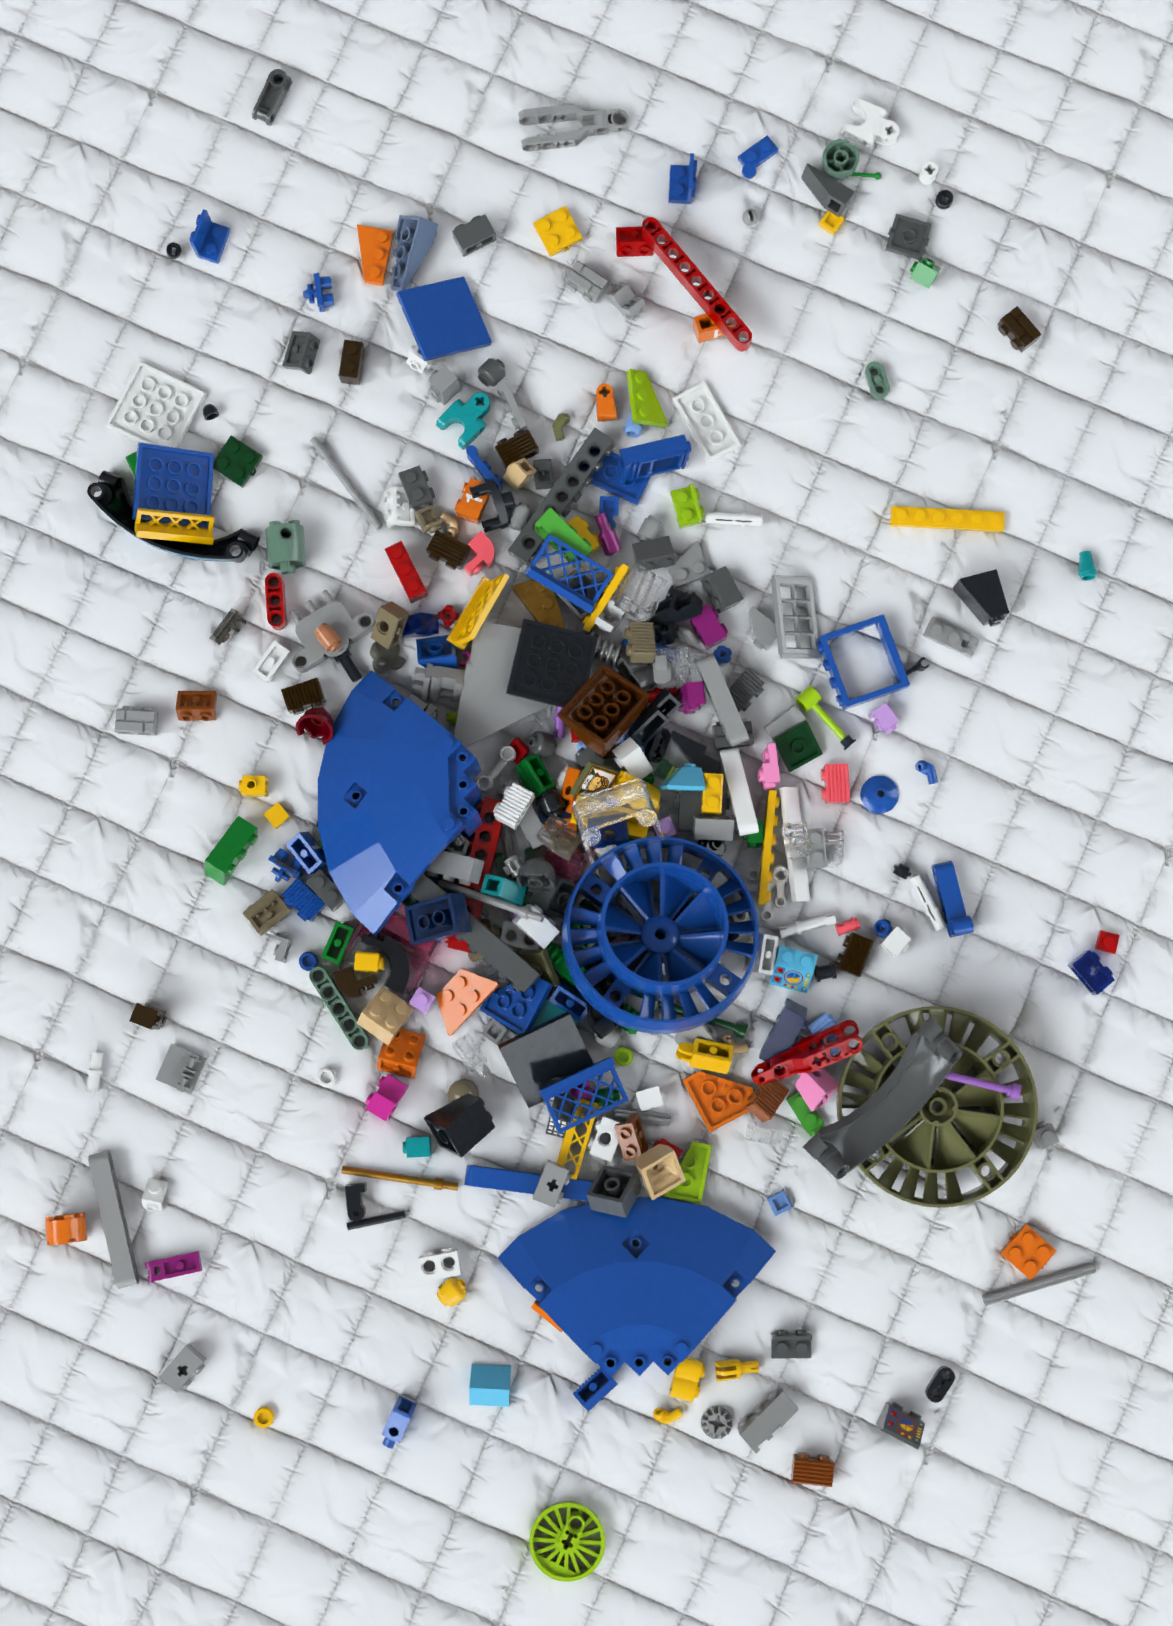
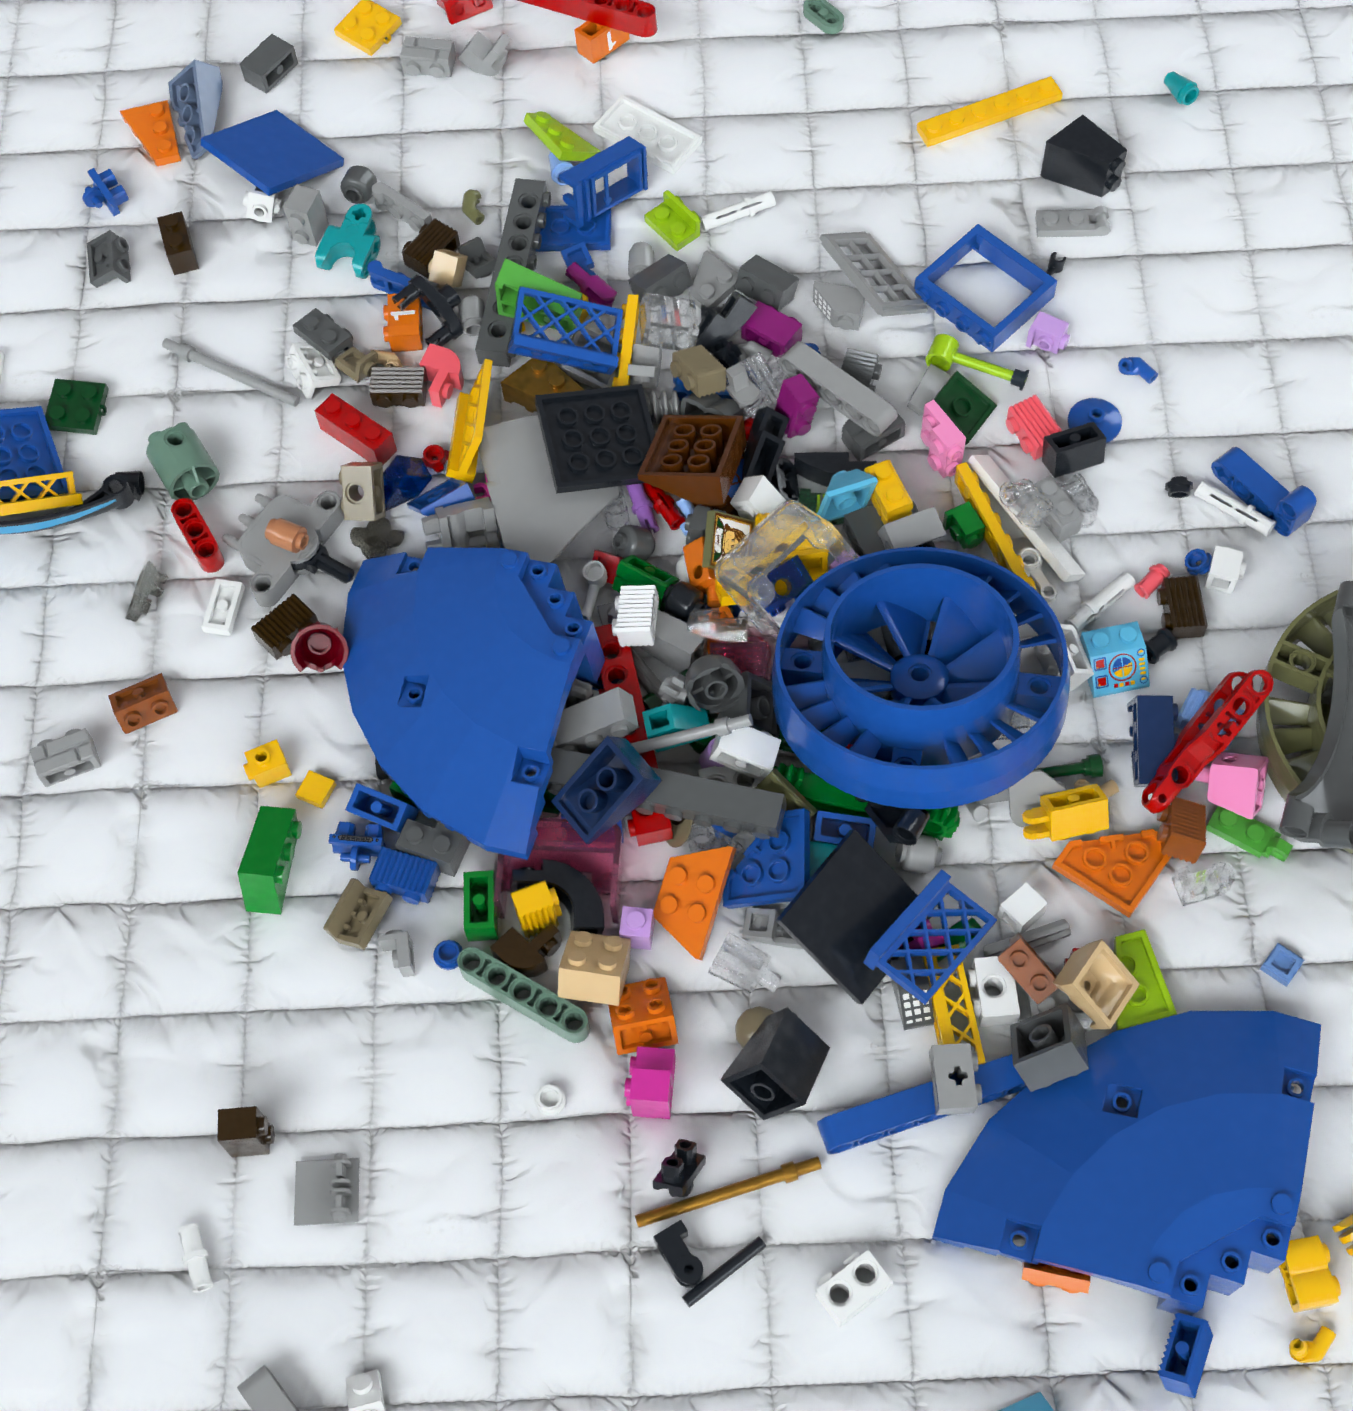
camera: 20 degrees left, 20 degrees down
(210, 412) = (17, 368): black hinge -> none
(377, 1155) = (680, 1169): none -> black hips
(417, 1146) = (732, 1131): teal brick -> none
(452, 1291) = (892, 1318): yellow head -> none
(605, 405) = (515, 159): orange piece -> none
(623, 1056) = (959, 873): lime plate -> none
(738, 791) = (923, 484): white beam -> none
(849, 814) = (1074, 449): none -> black brick

